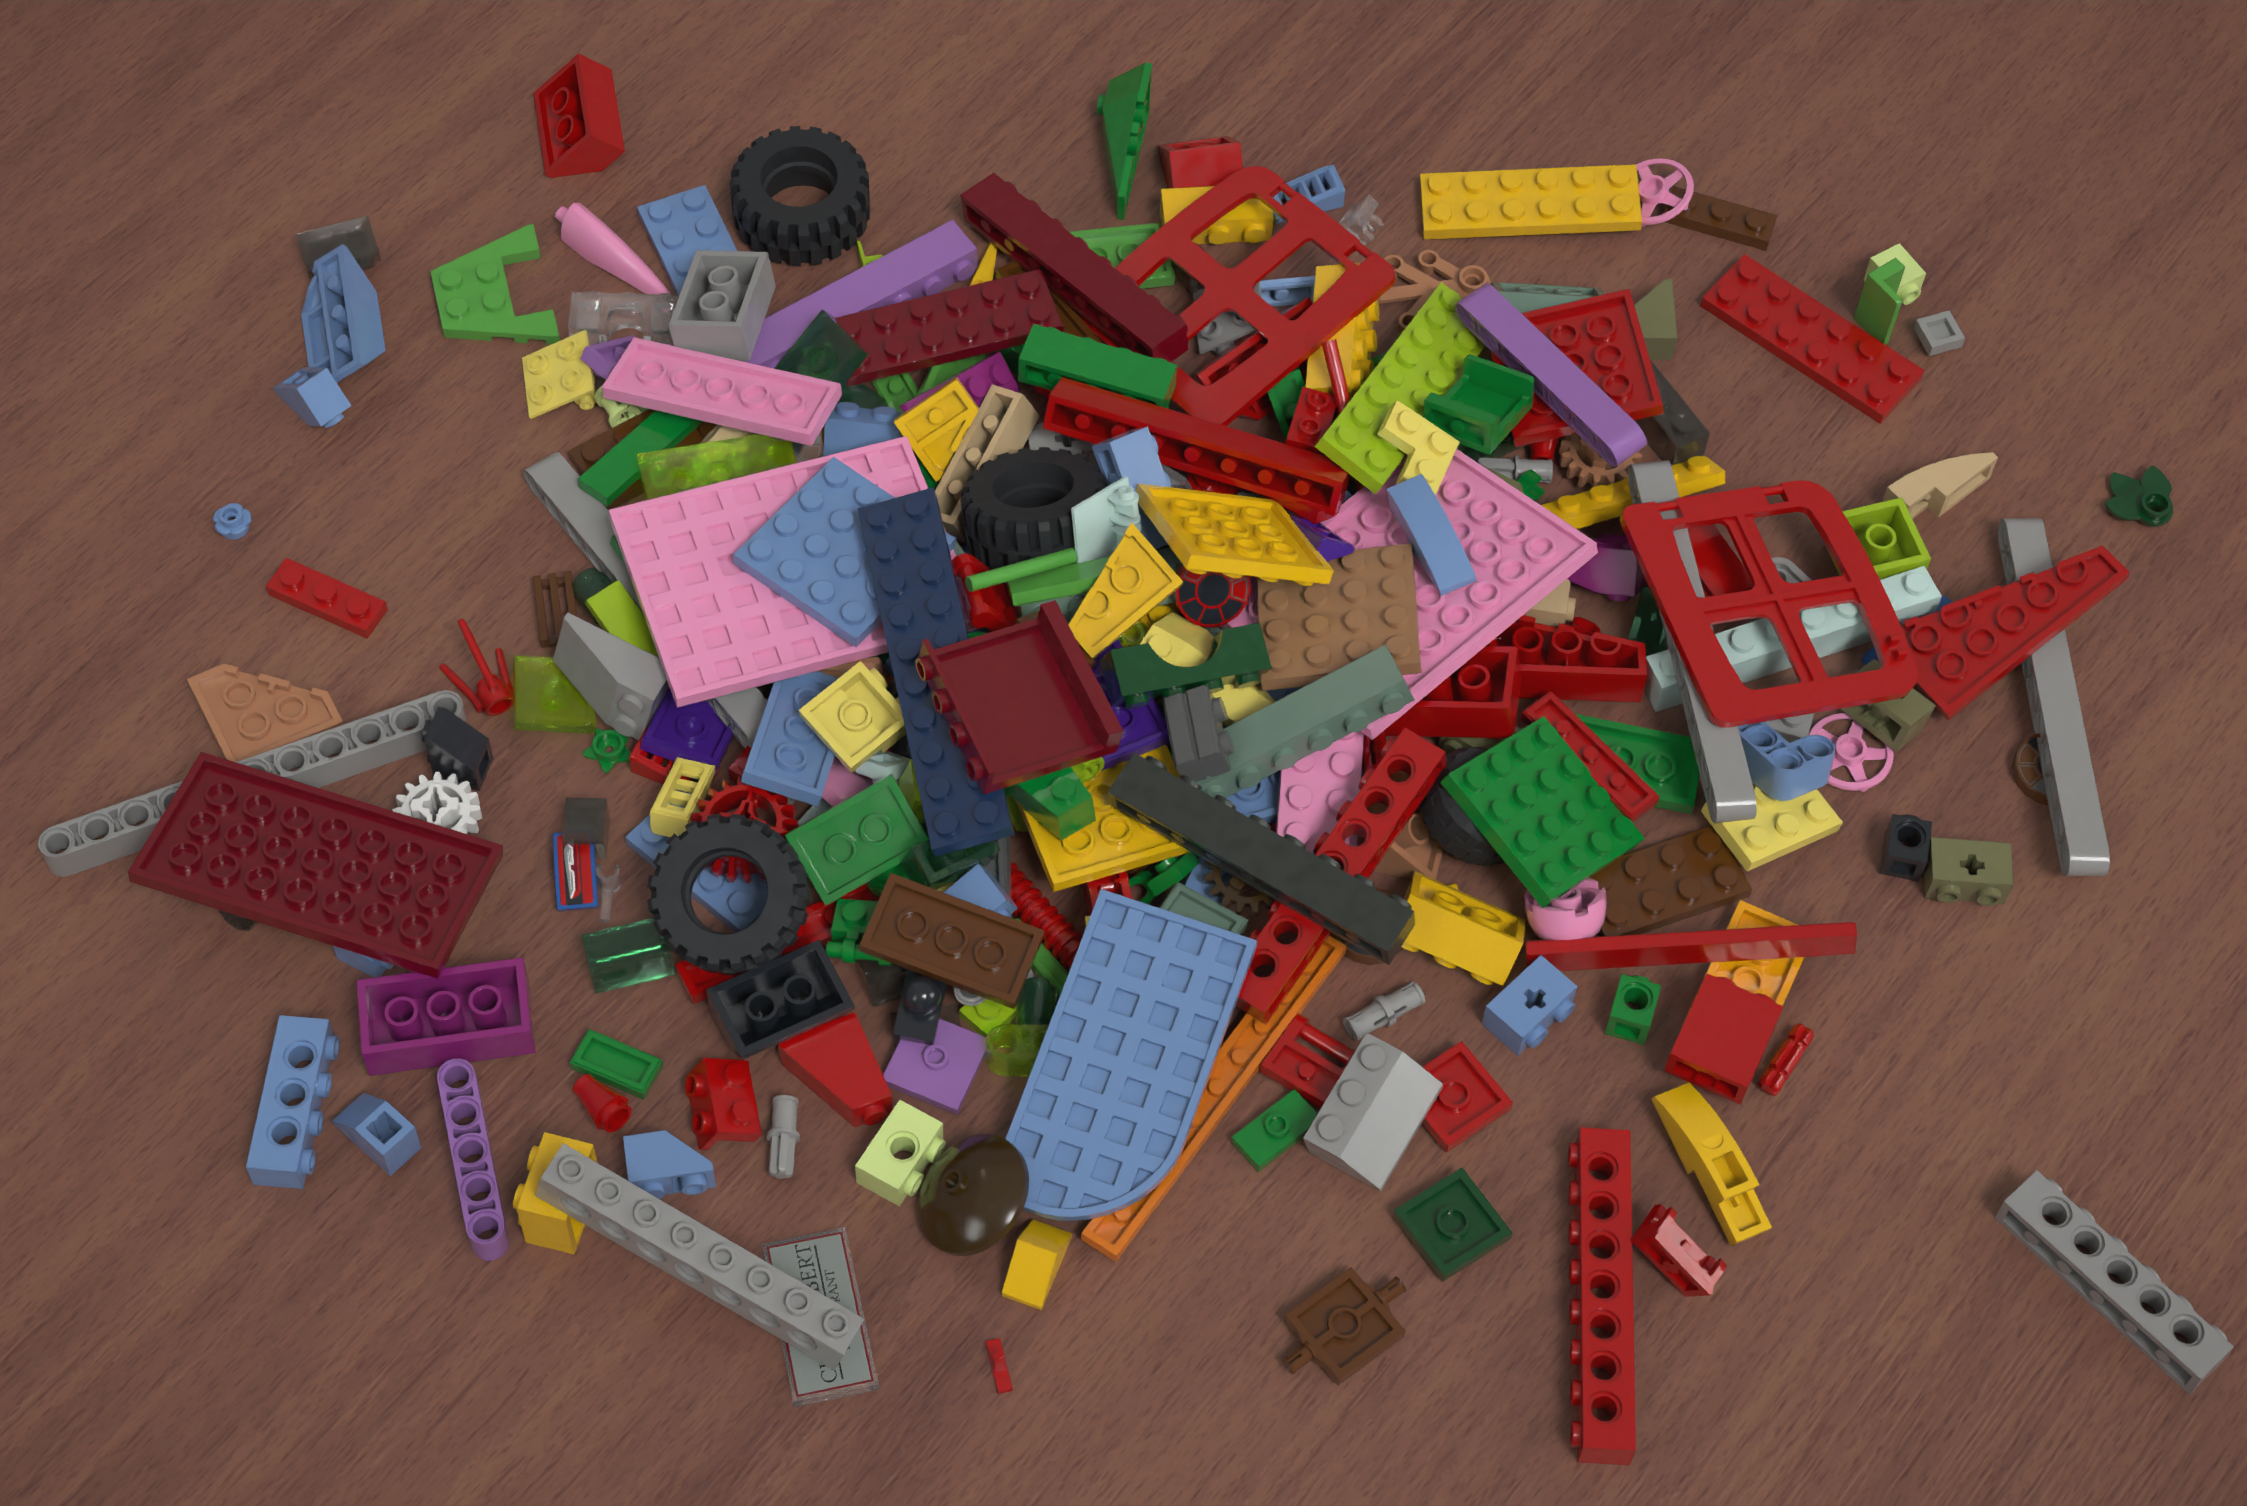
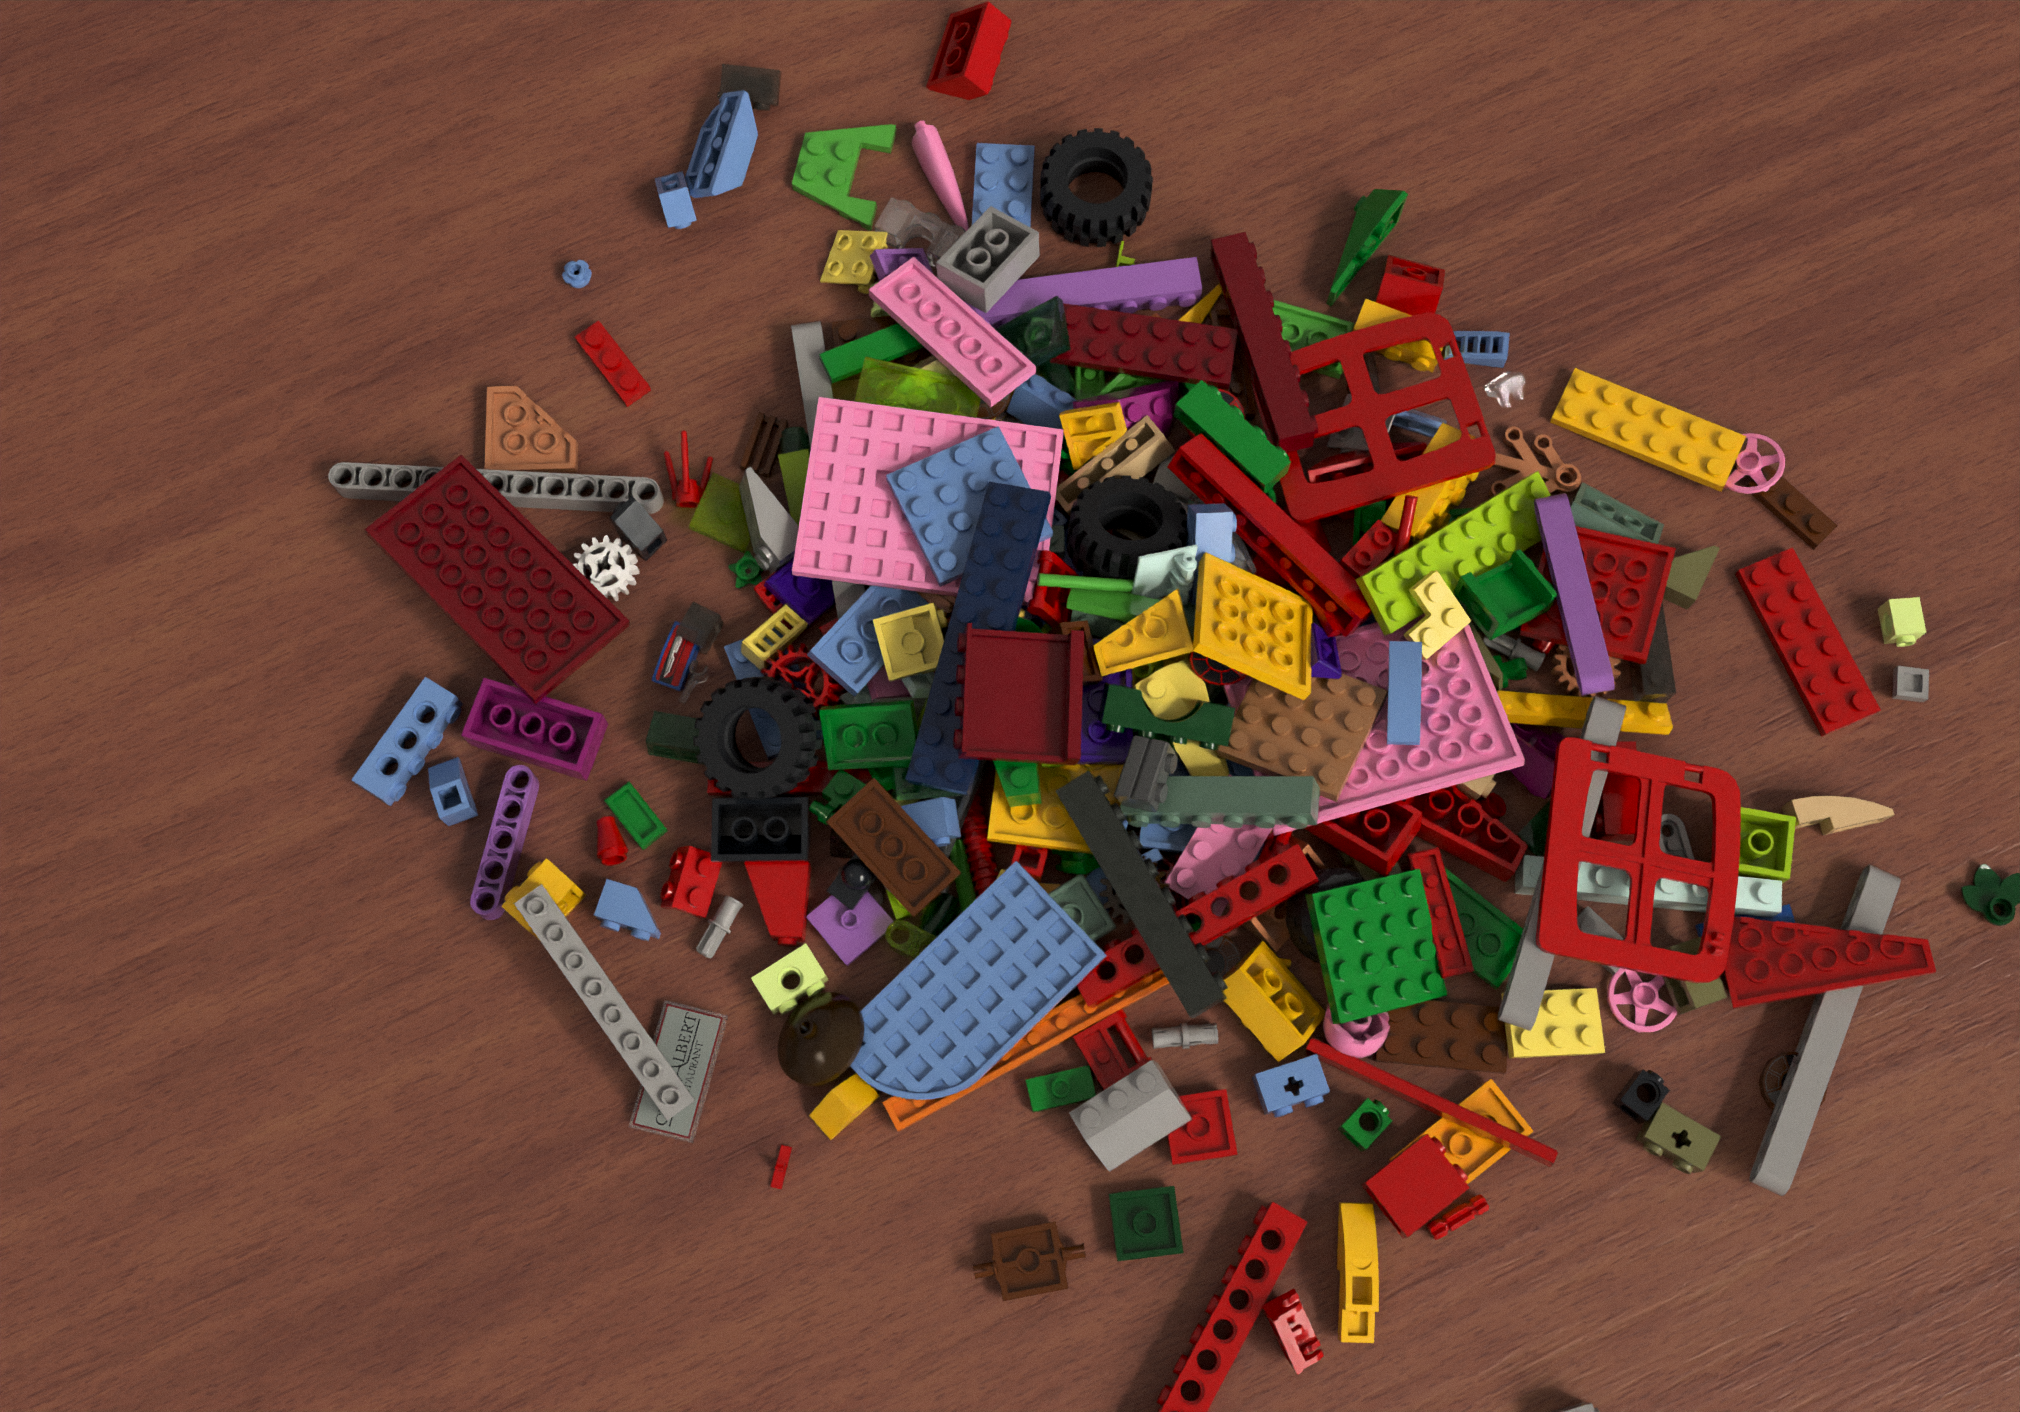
camera: 30 degrees right, 15 degrees up
(1786, 768) = (1582, 989): medium blue beam -> none
(1879, 300) = (1871, 641): bright green panel -> none

